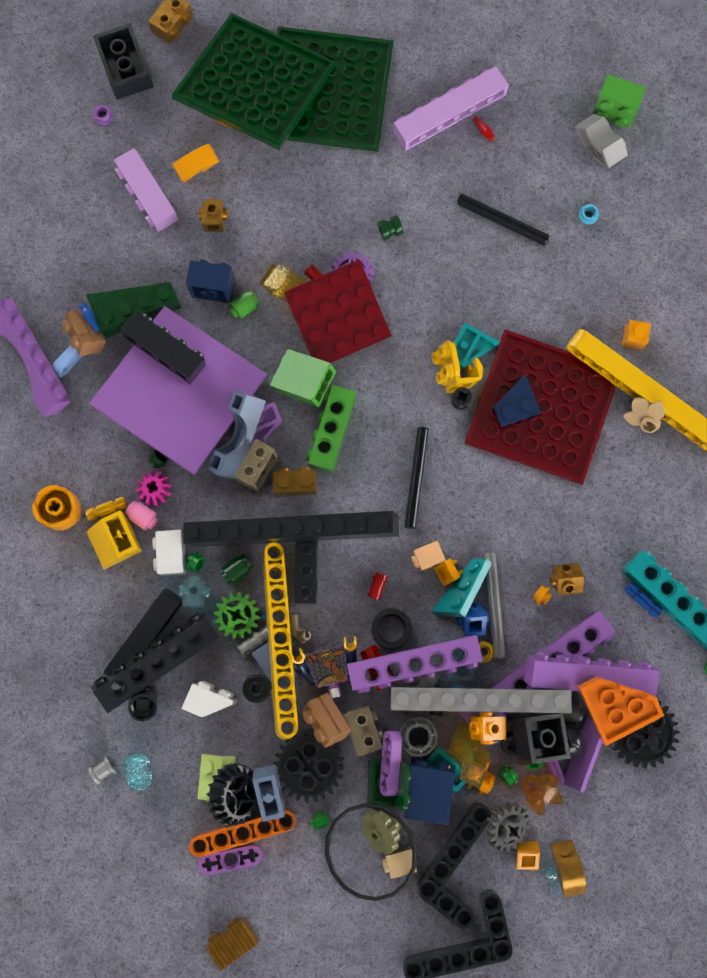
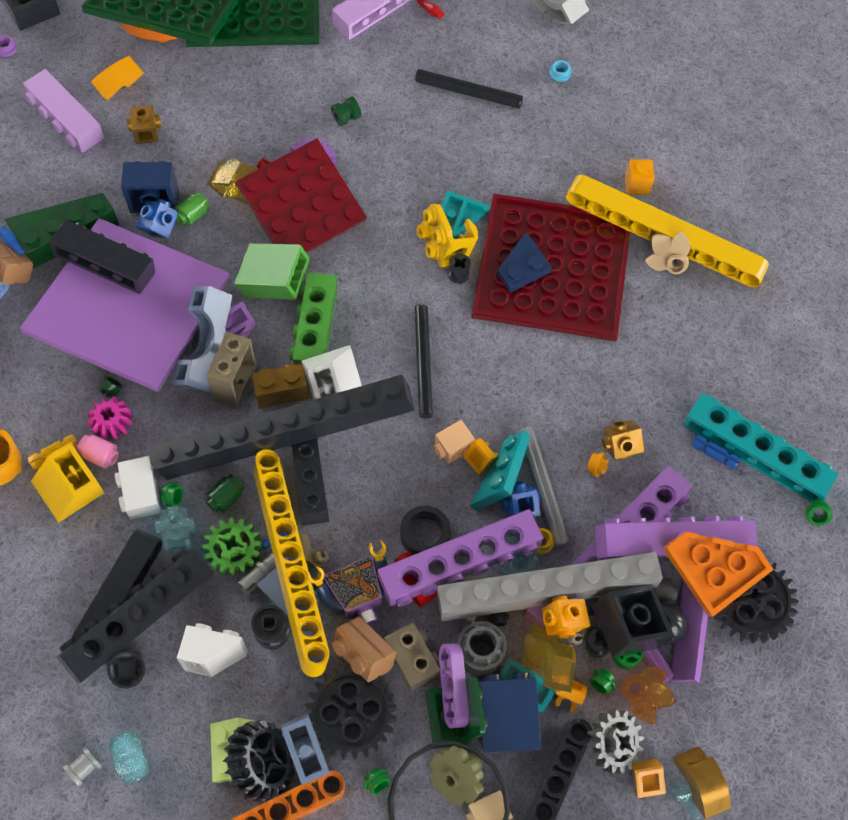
camera: 15 degrees left, 15 degrees down
(213, 312) = (157, 218): none -> blue brick
(338, 487) = (331, 372): none -> white slope
(377, 585) = (399, 485): red pin -> none

